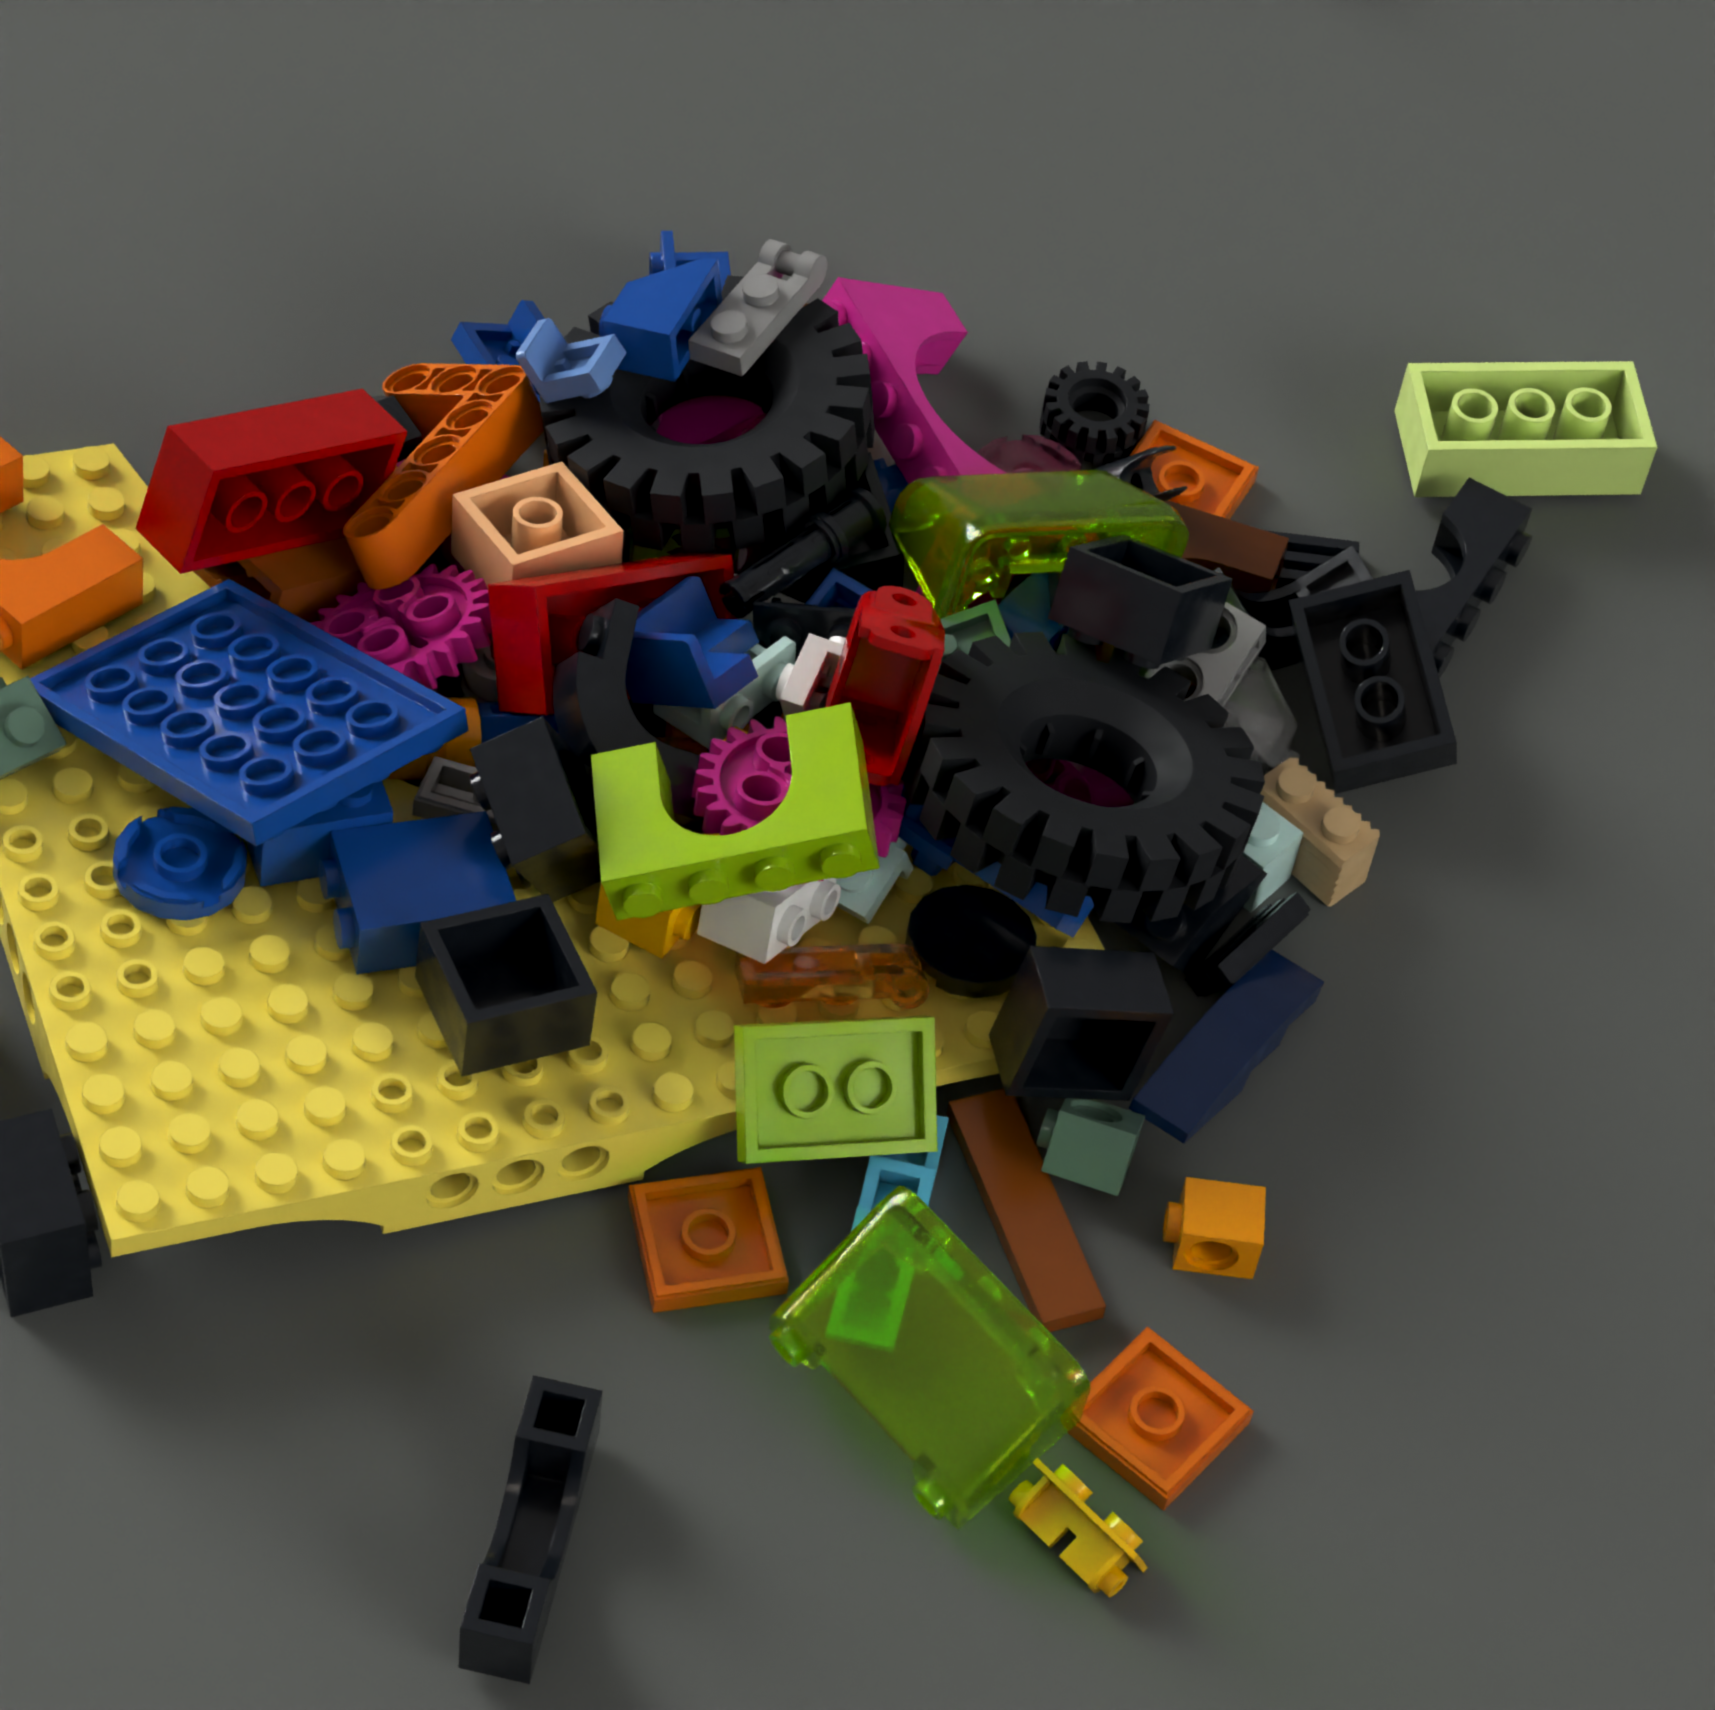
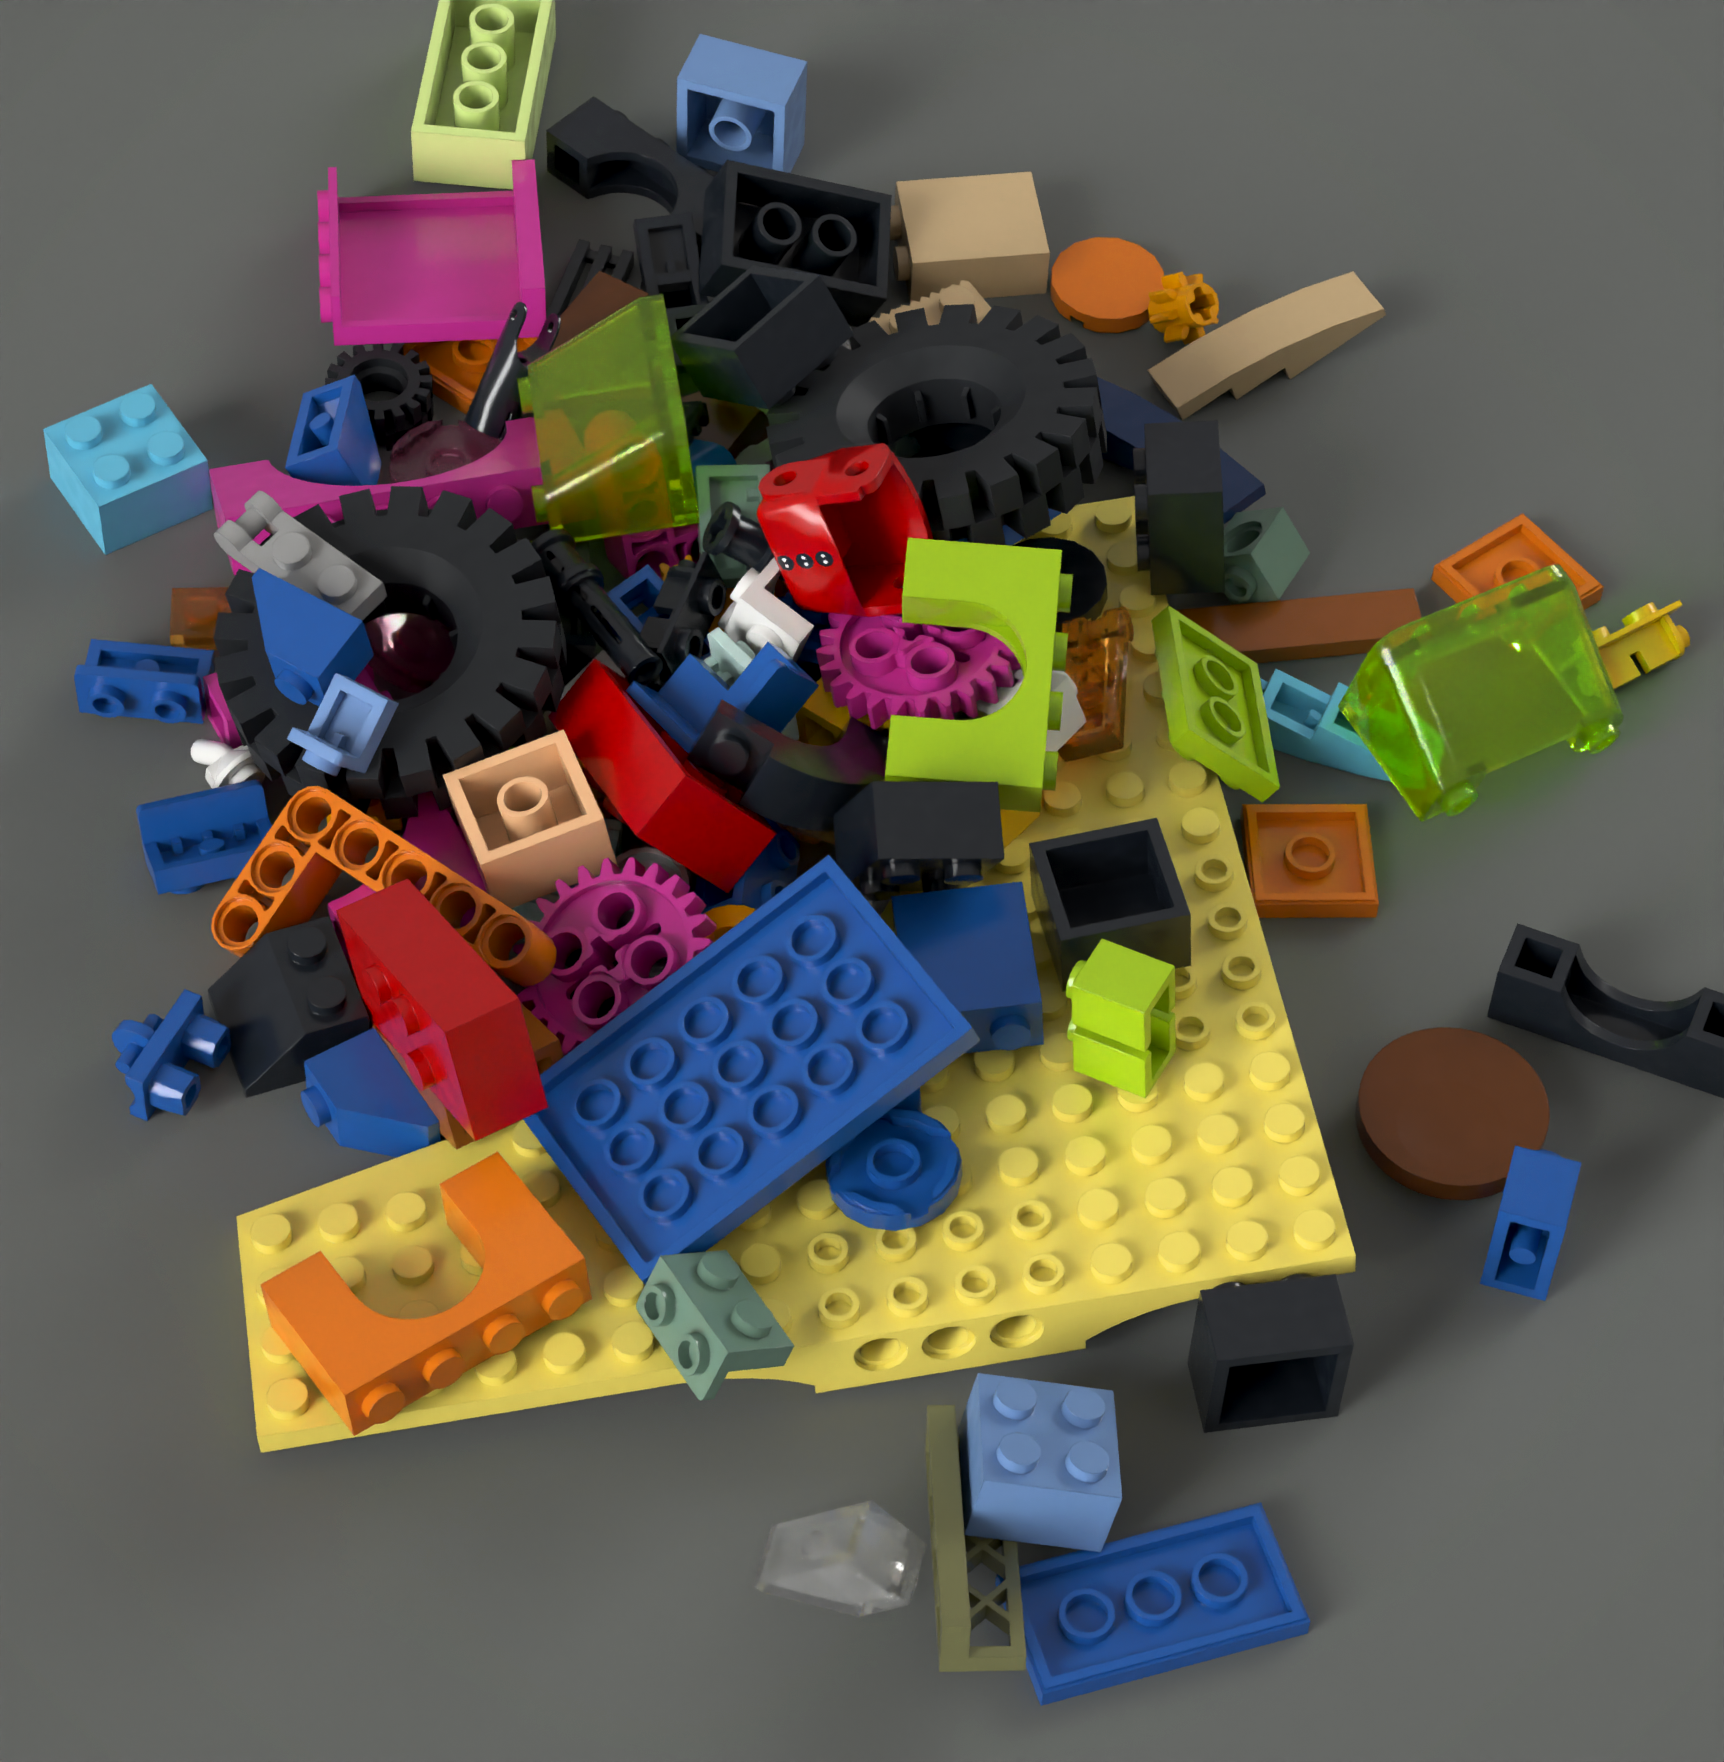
camera: 75 degrees left, 0 degrees up
(226, 1438) = (1530, 1222): none -> blue brick
(271, 368) = (159, 1050): none -> blue hips
(344, 992) = (1122, 1017): none -> lime piece
(376, 1376) = (1449, 1110): none -> reddish brown piece
(938, 241) = (128, 469): none -> medium azure brick
(996, 379) = (334, 437): none -> blue slope
(1216, 1227) = (1345, 494): light orange brick -> none
(1269, 419) = (431, 263): none -> dark pink panel
(1427, 1142) = (1271, 338): none -> tan slope
(1457, 1055) = (1183, 307): none -> light orange gear
(1467, 993) = (1105, 284): none -> orange tile
(1477, 857) = (972, 232): none -> tan brick
(1562, 628) = (740, 106): none -> medium blue brick

